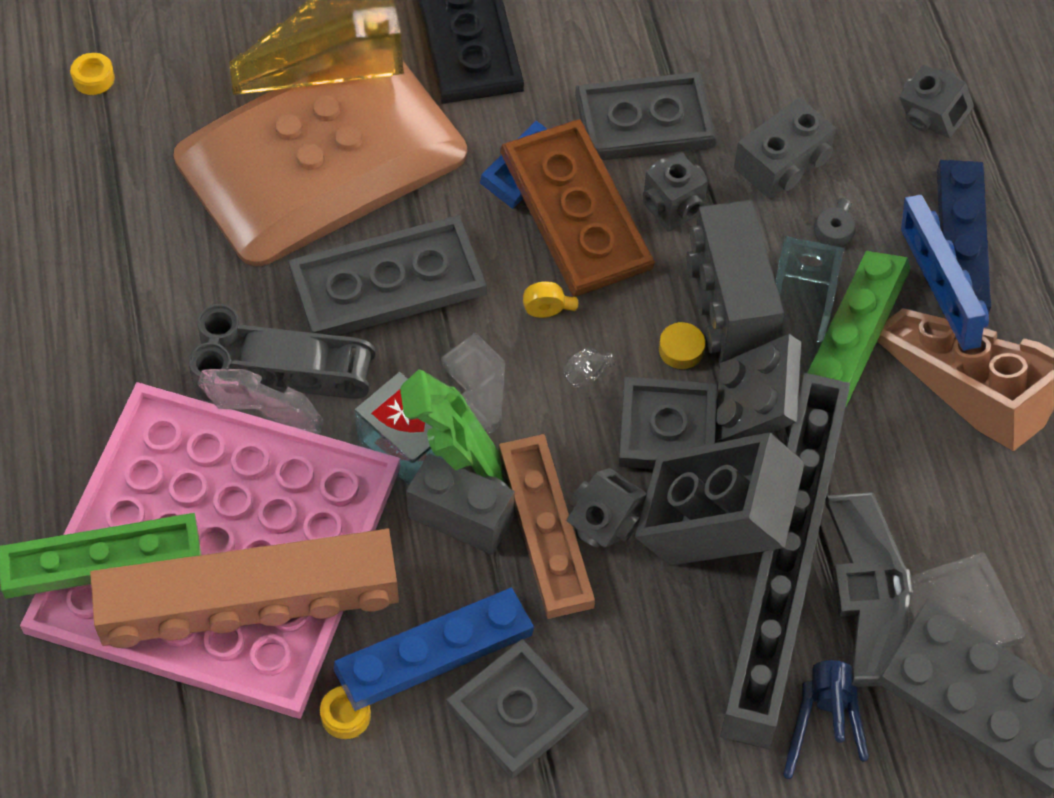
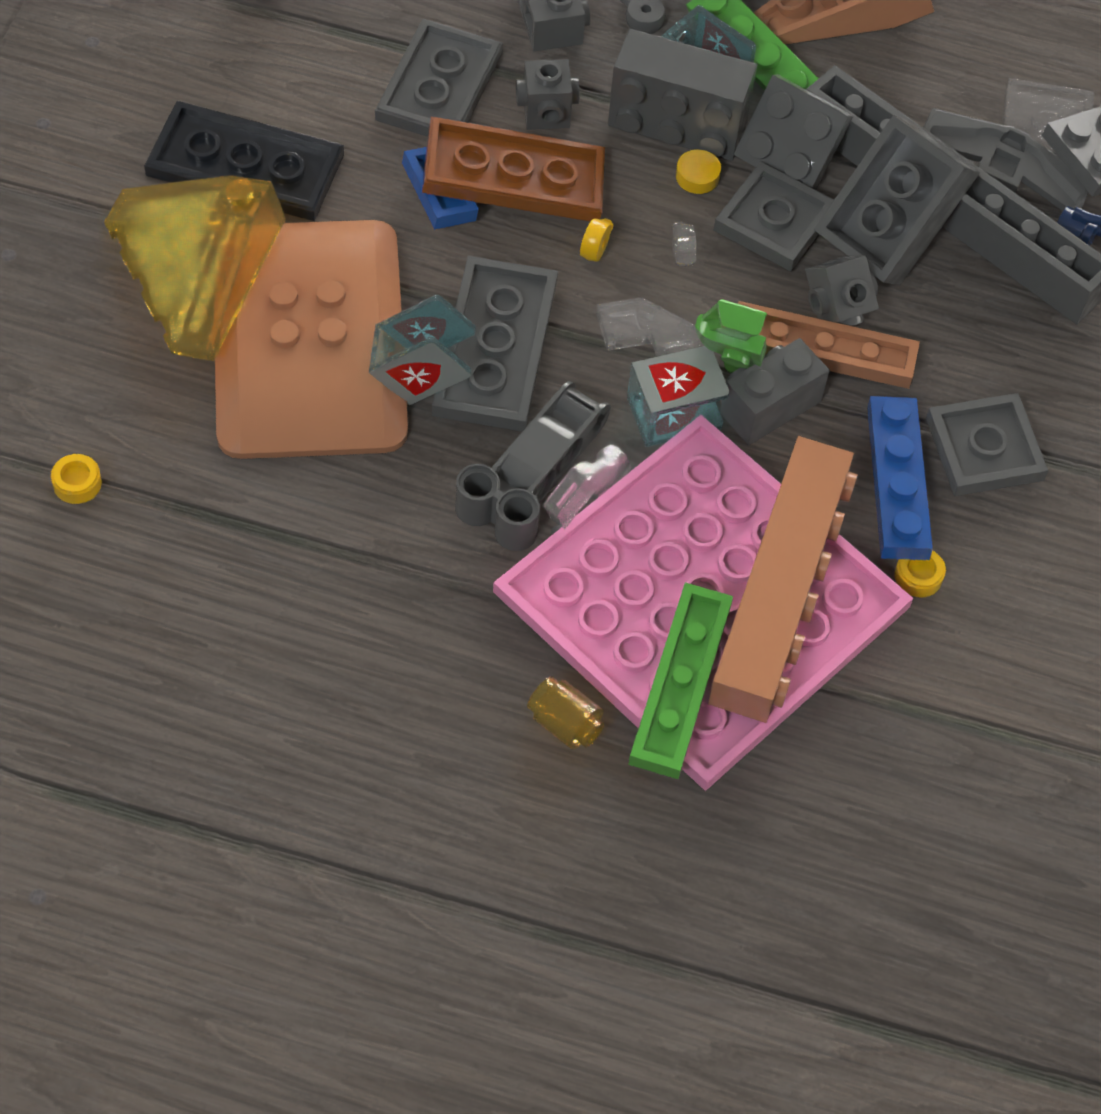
camera: 65 degrees left, 0 degrees up
(39, 492) = (566, 713): none -> clear yellow brick
(343, 218) = (420, 349): none -> piece

